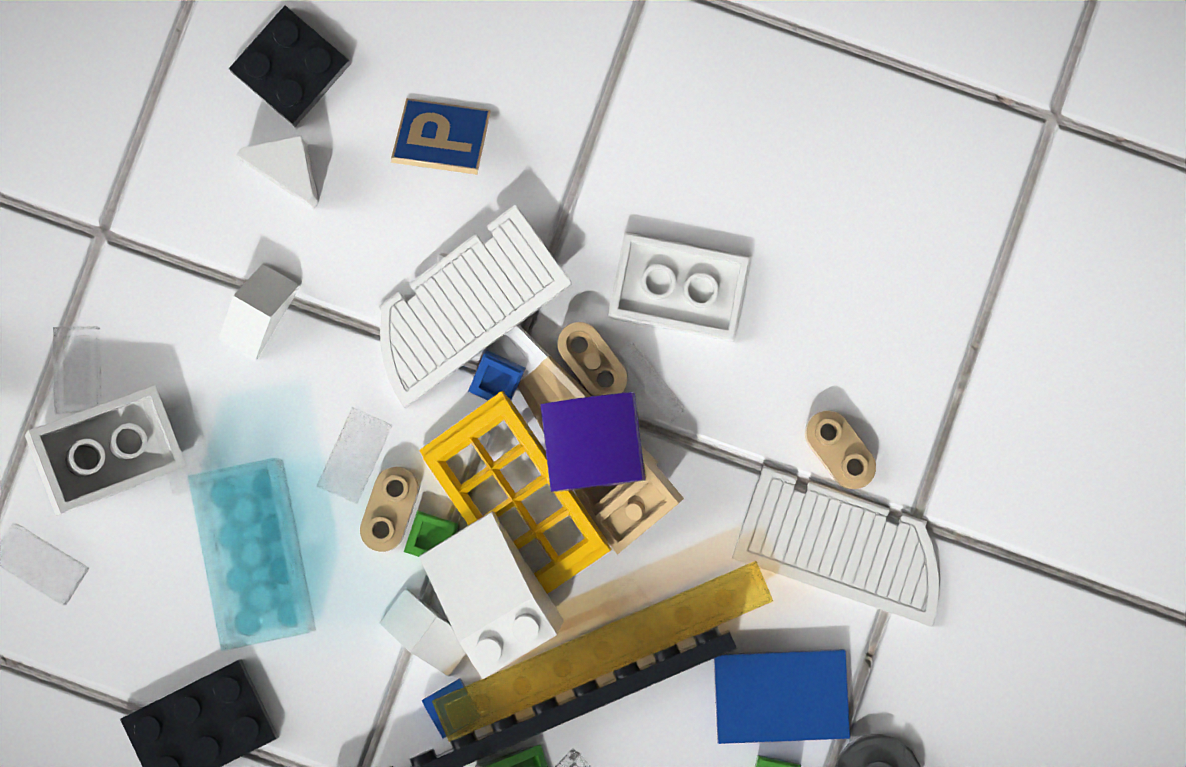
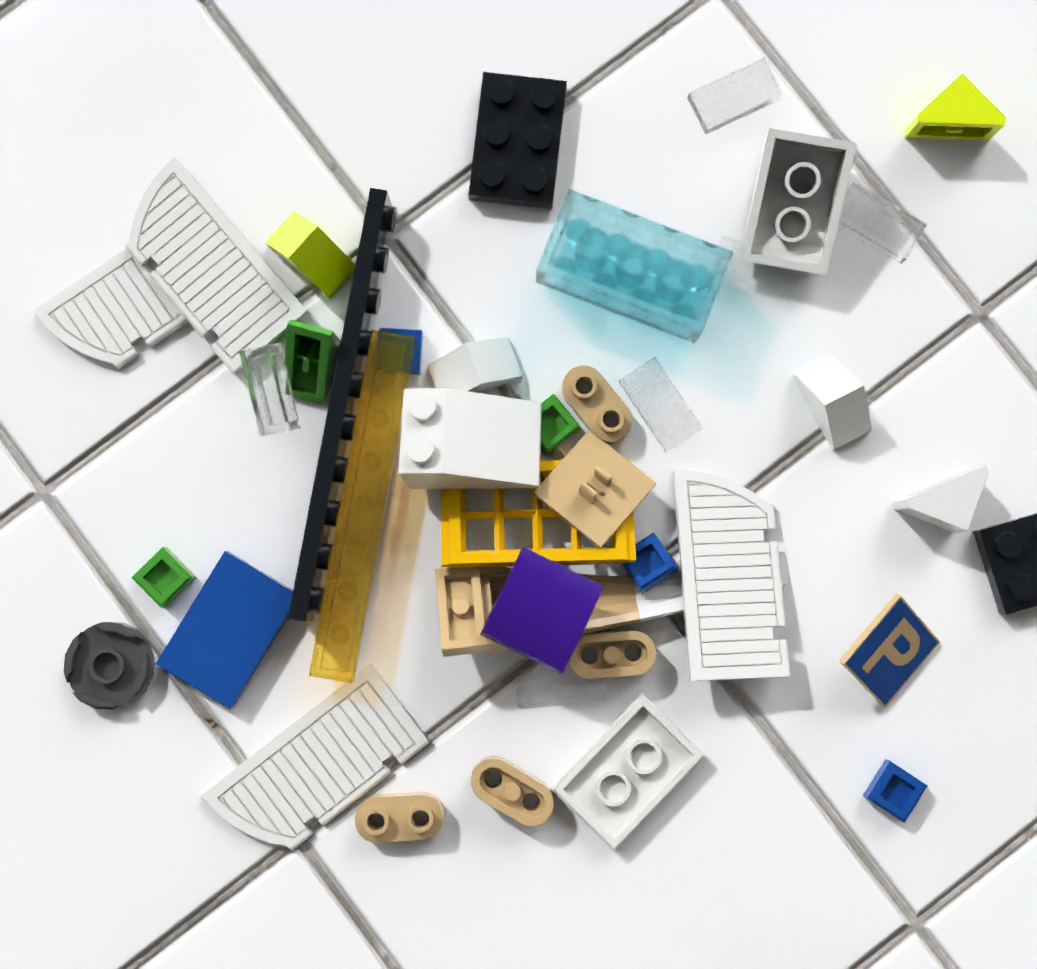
camera: 125 degrees right, 0 degrees up
(463, 464) = (594, 489): none -> tan piece
(552, 60) = (895, 790): none -> blue tile
(757, 372) = (509, 793): none -> tan plate

